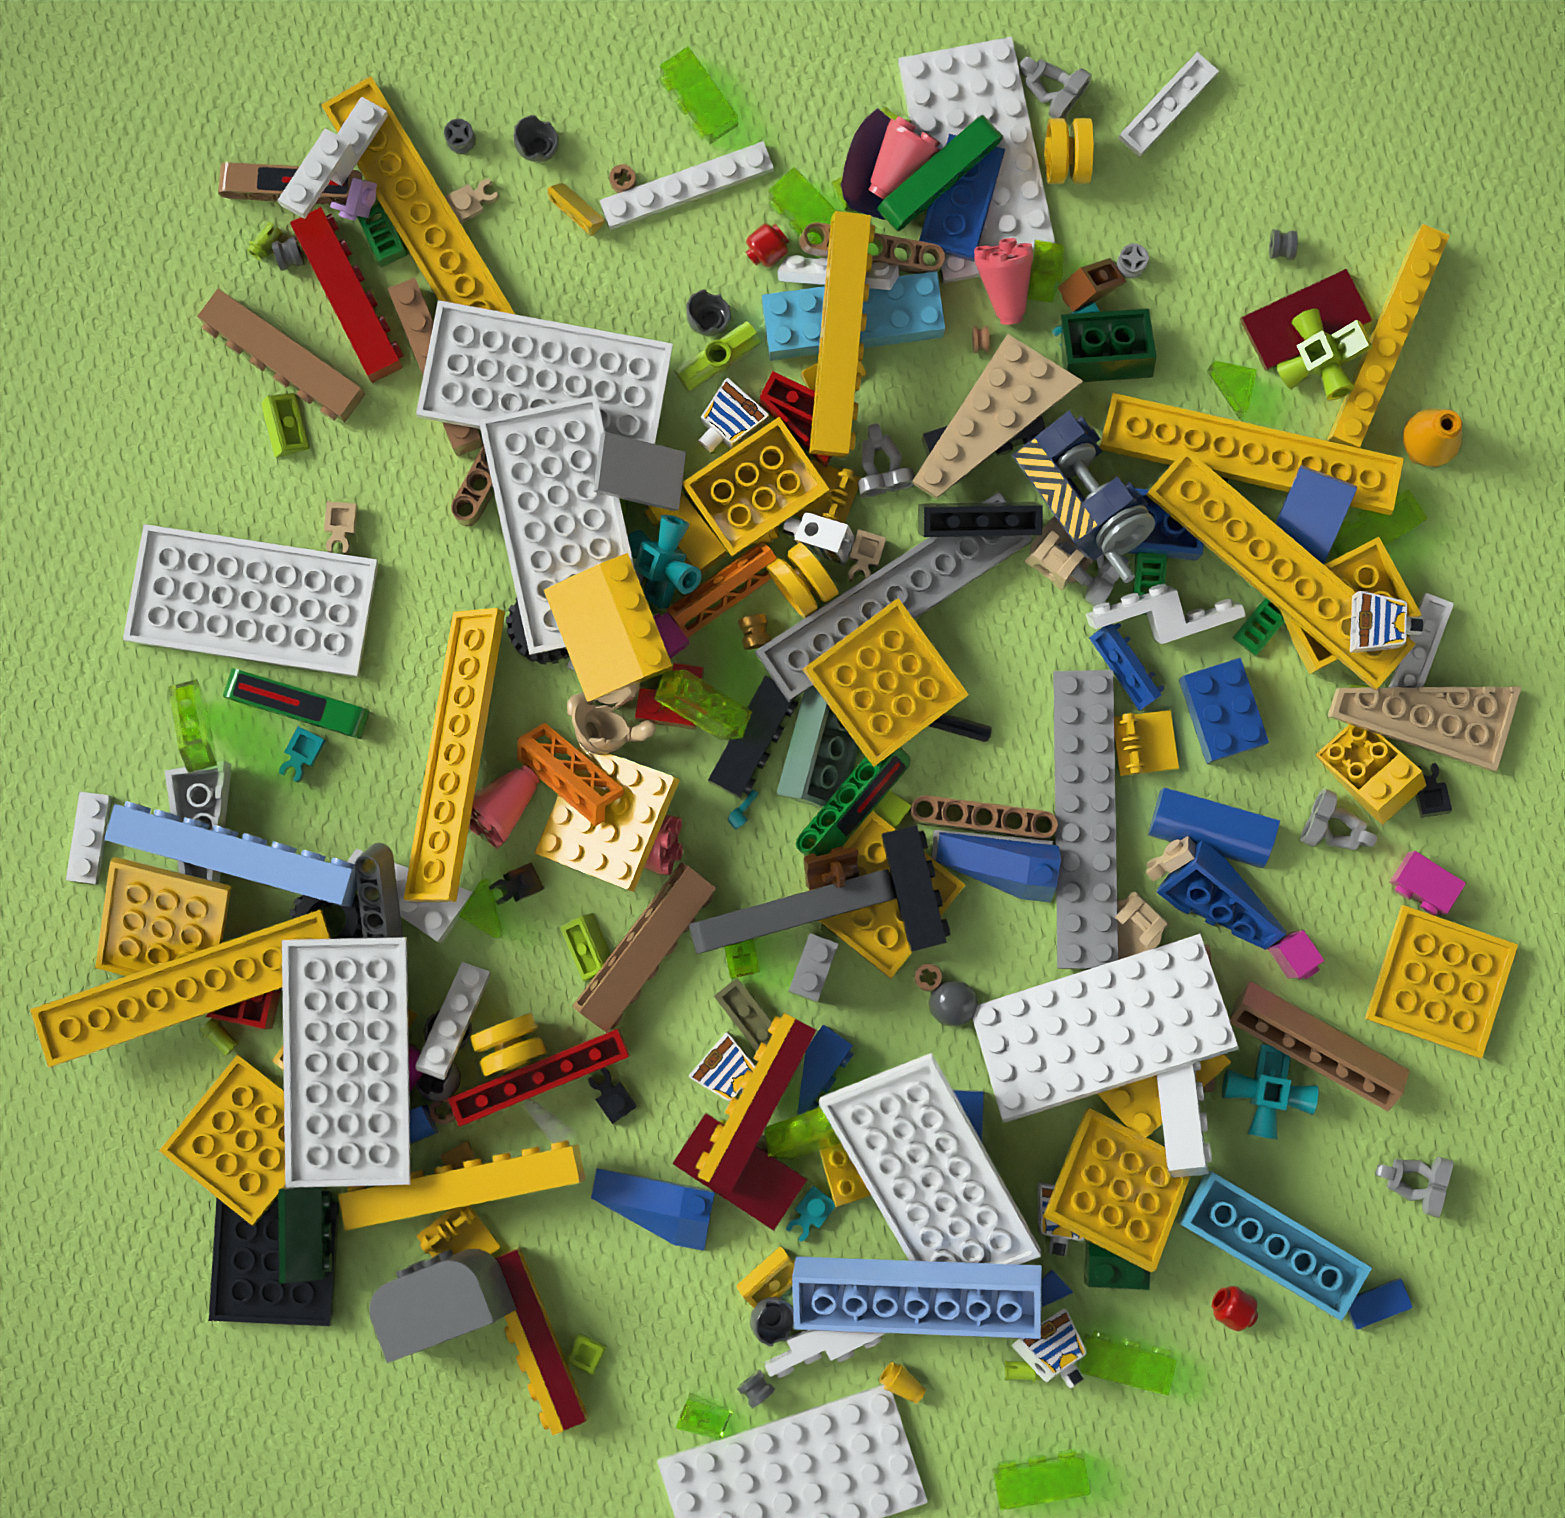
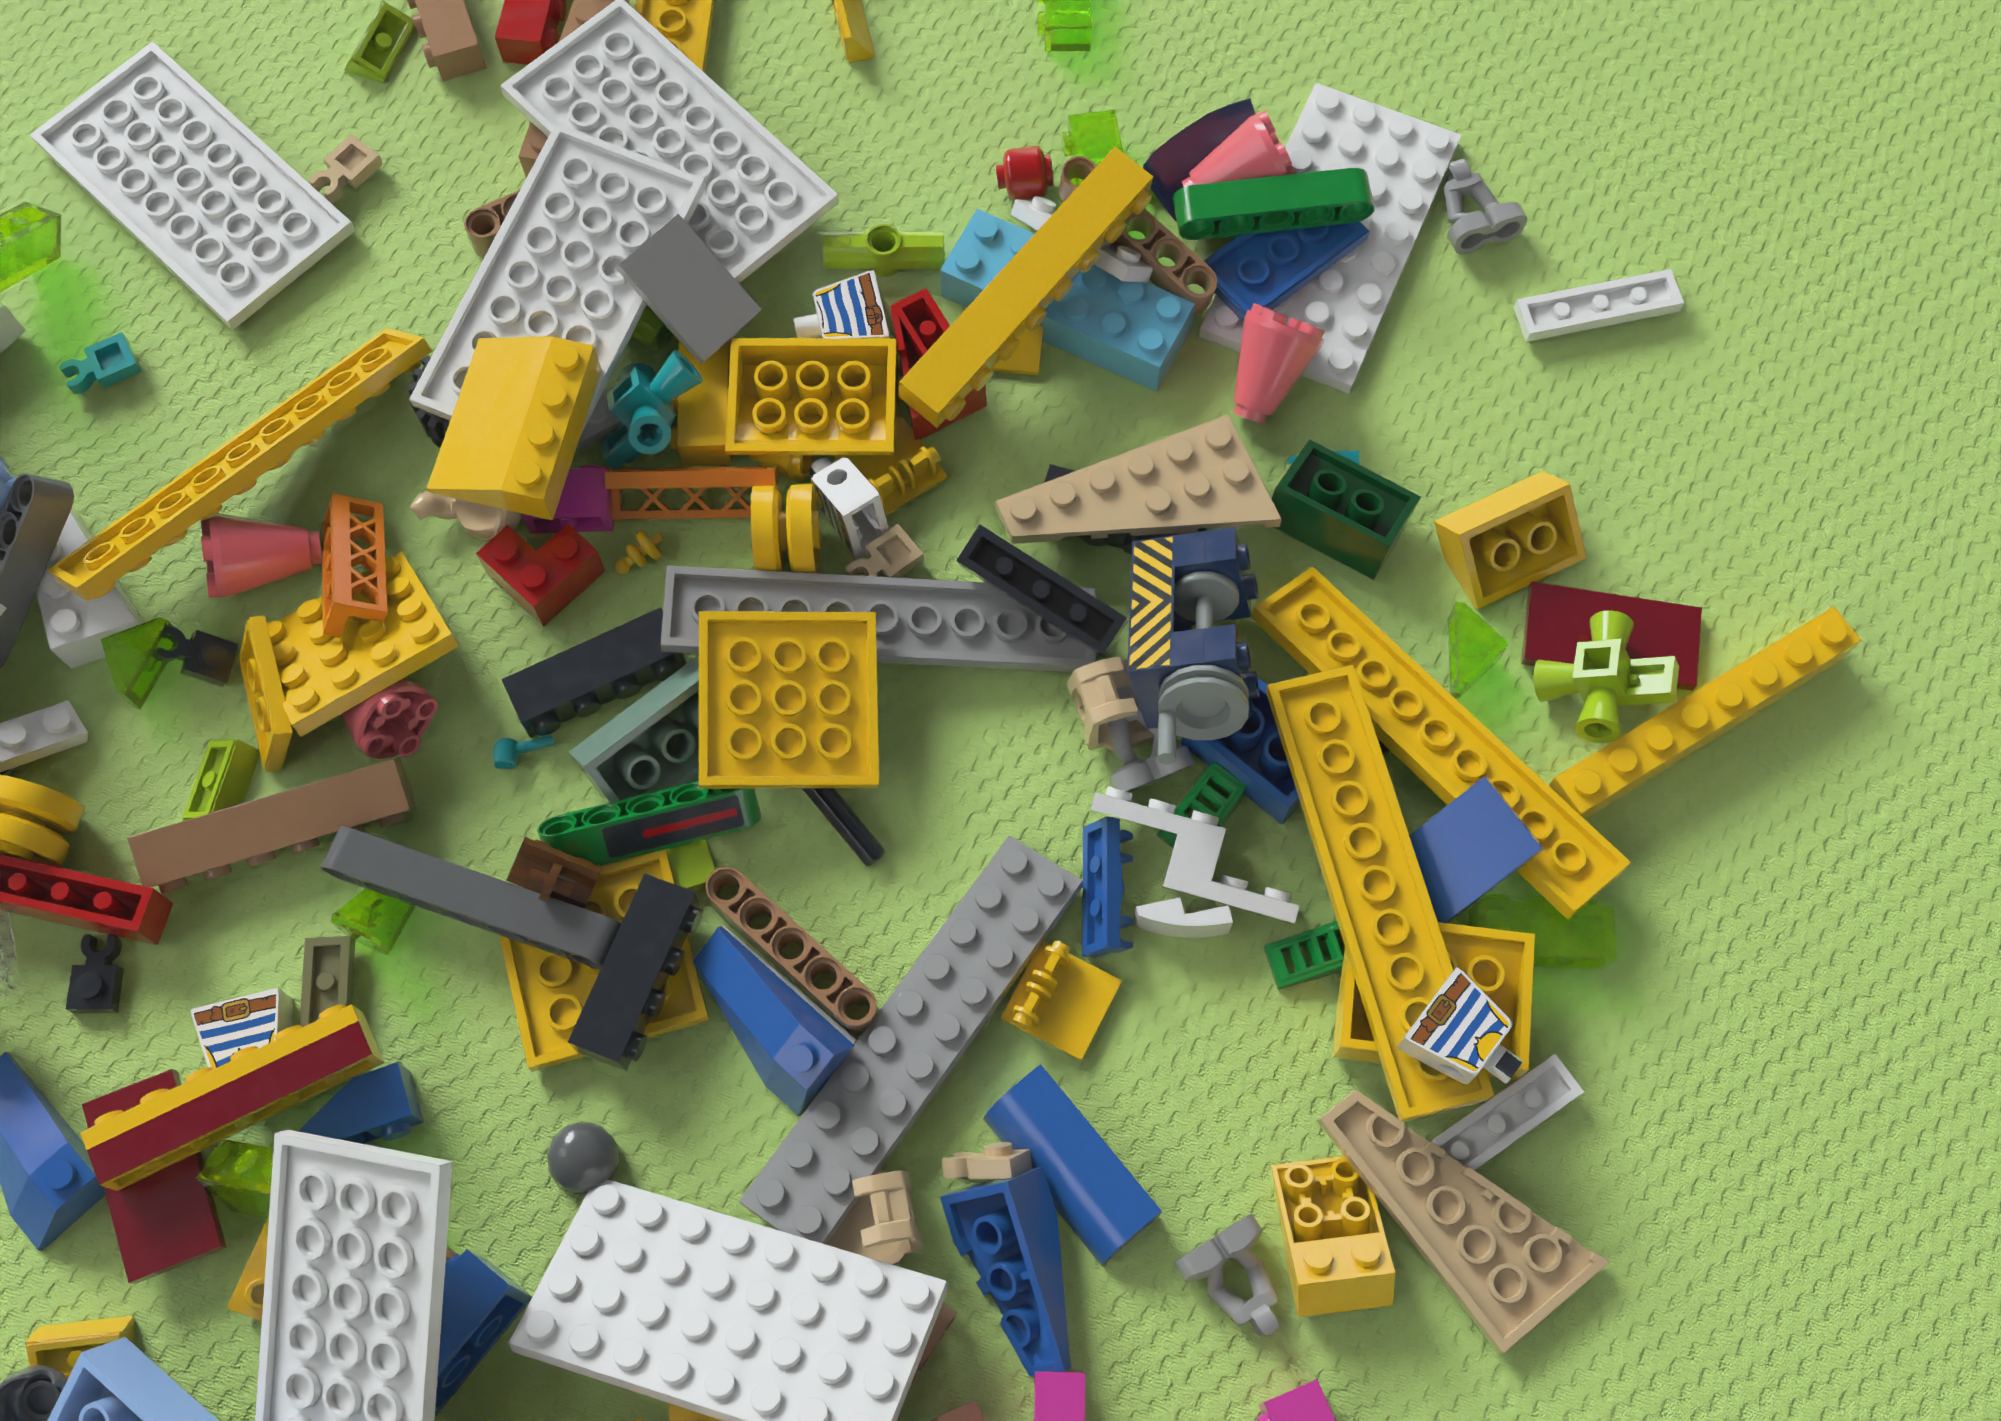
camera: 35 degrees right, 15 degrees down
(296, 703) = (143, 311): beam -> none
(580, 880) = (264, 694): none -> yellow tile
(605, 731) = (433, 545): tan piece -> none
(617, 172) = (923, 15): medium nougat bush -> none
(686, 185) = (987, 71): white plate -> none
(703, 704) = (555, 582): clear neon green brick -> none
(708, 313) = (906, 199): dark grey hair -> none
(718, 650) = (637, 554): none -> yellow hair
(754, 631) = (694, 550): pearl gold wheel -> none
(813, 967) = (437, 981): light grey brick -> none
(813, 1209) = (203, 1300): teal plate -> none
(891, 481) = (960, 493): light grey piece -> none
(931, 968) = (588, 1092): medium nougat bush -> none
(980, 339) = (1196, 412): medium nougat bush -> none
(1045, 270) = (1322, 386): clear neon green slope -> none
(1068, 151) = (1443, 273): yellow wheel -> none
(1091, 283) = (1371, 430): dark orange slope -> none
(1134, 254) = (1435, 431): light grey wheel -> none
(1176, 656) = (1169, 919): none -> white slope
(1213, 297) = (1512, 538): none -> yellow slope
(1223, 710) = (1187, 1024): blue brick -> none
(1283, 244) = (1638, 532): dark grey wheel -> none
(1433, 437) = (1690, 868): light orange cone -> none
(1434, 797) = (1393, 1328): black plate -> none

